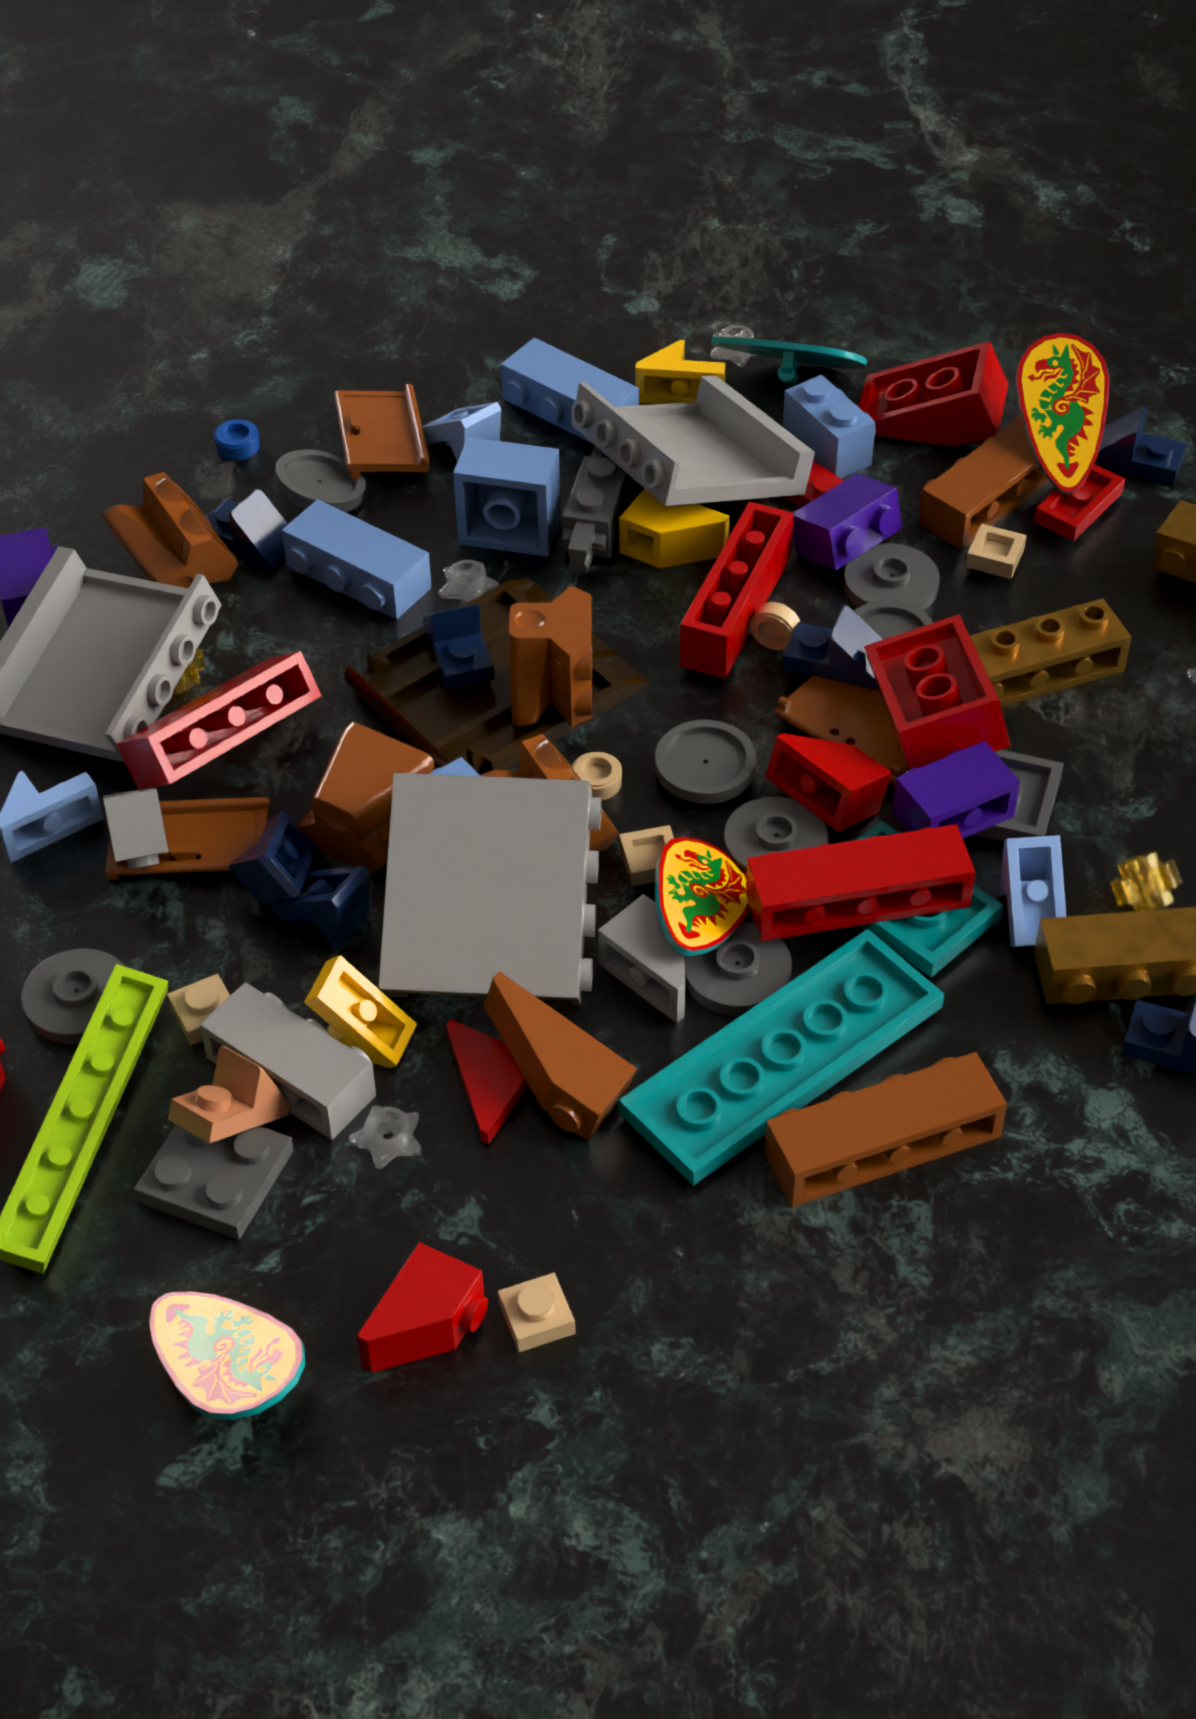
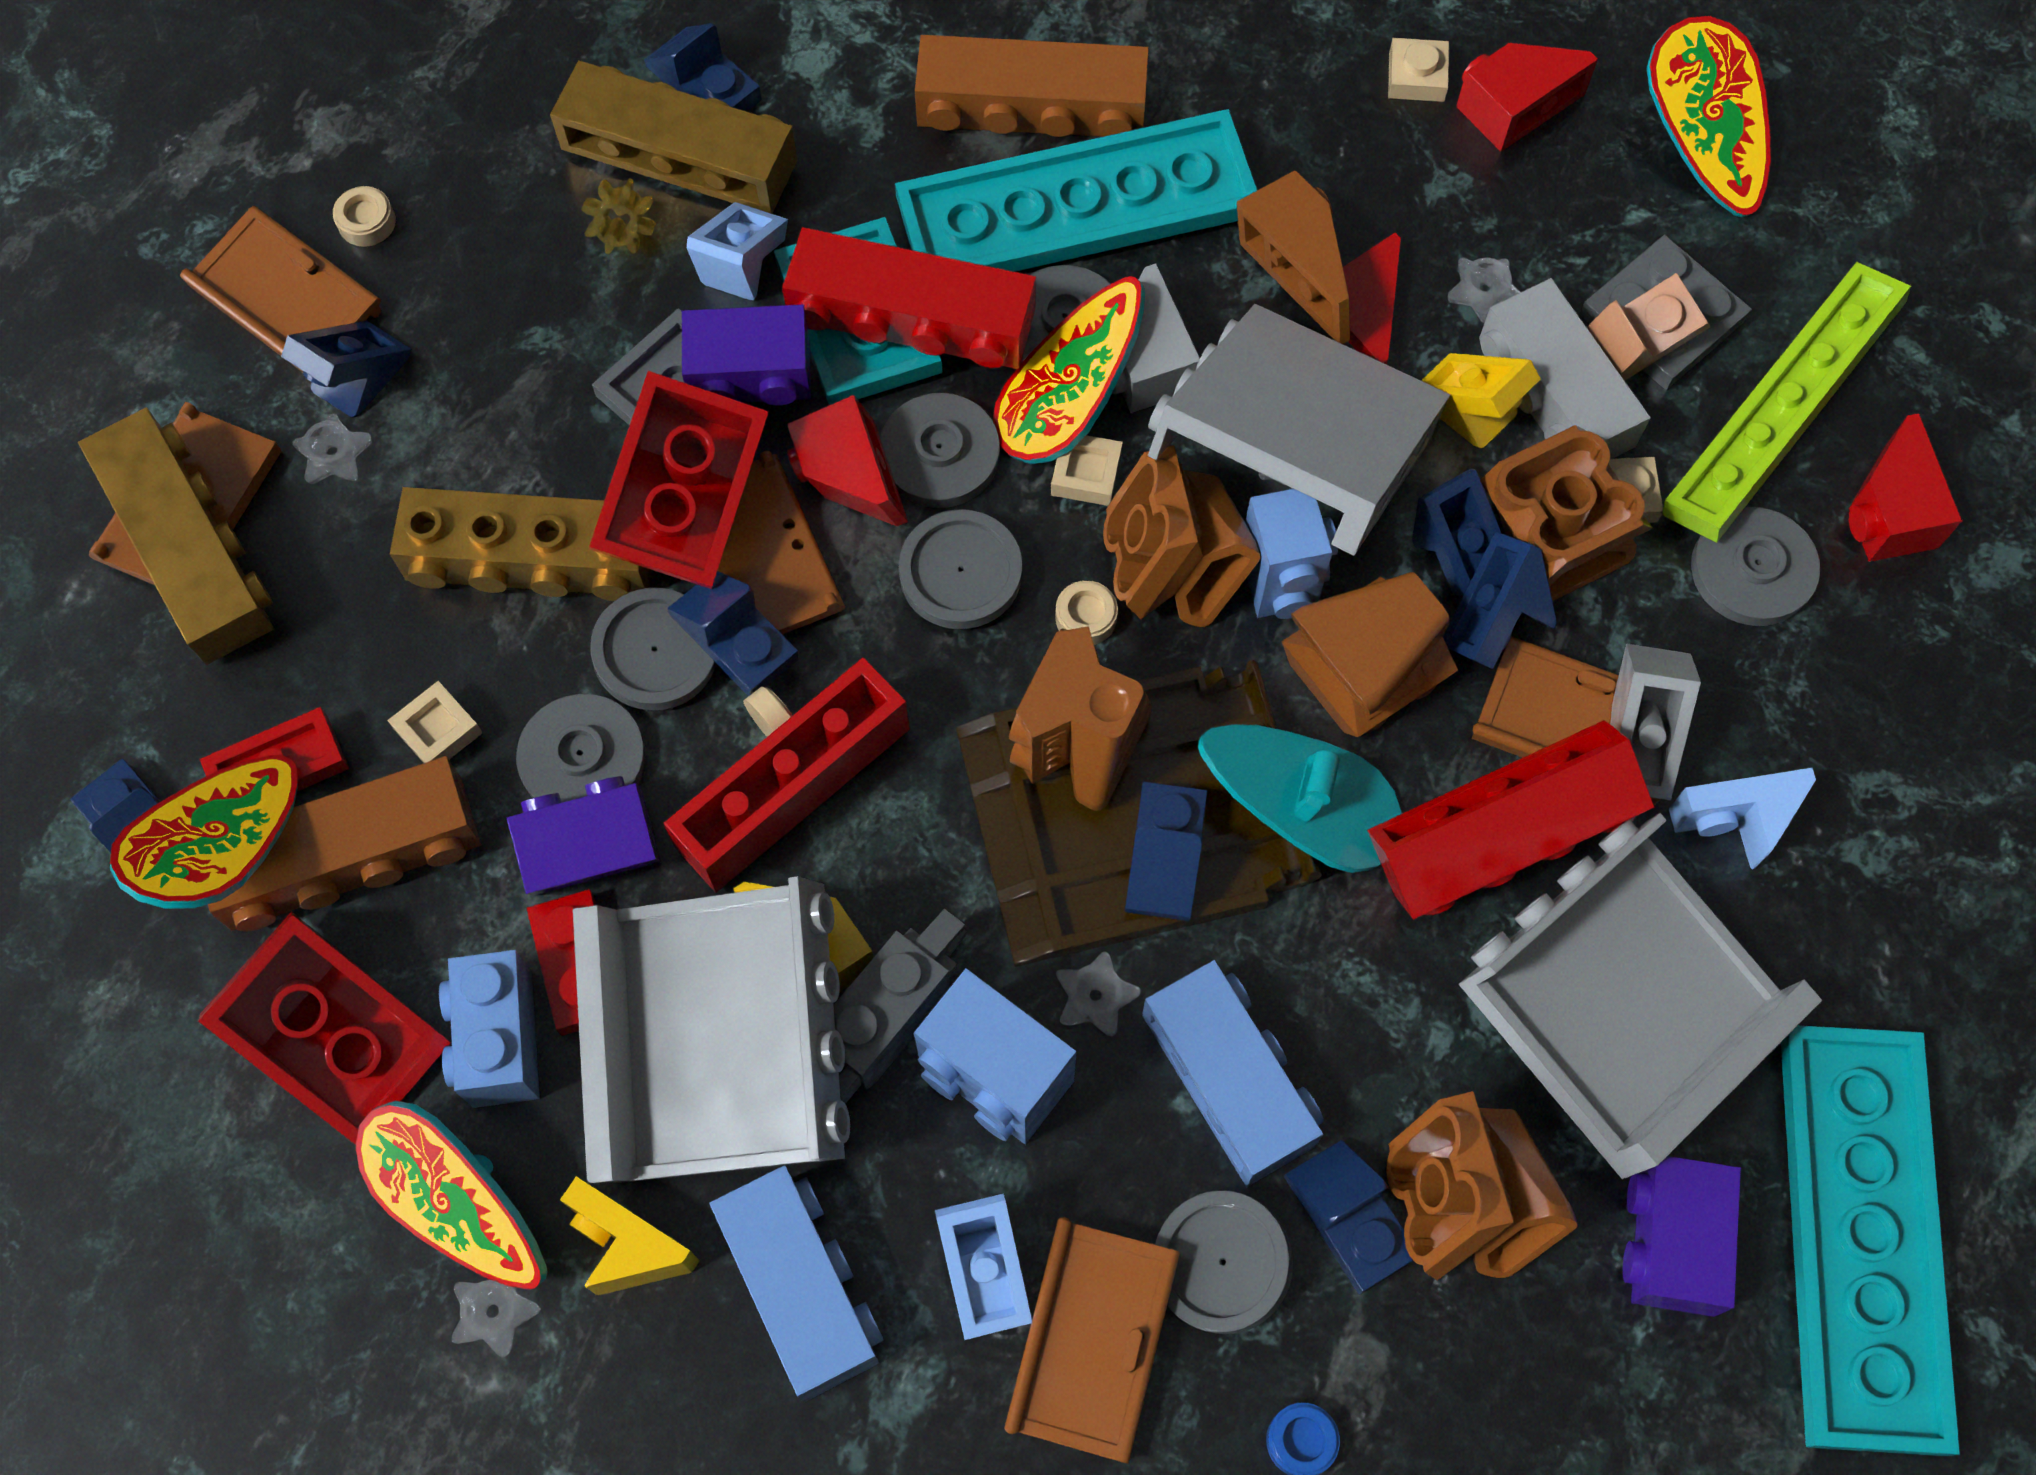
camera: 155 degrees left, 20 degrees up
(250, 930) = (1569, 507): none -> dark orange piece
(379, 696) = (1303, 790): none -> teal shield

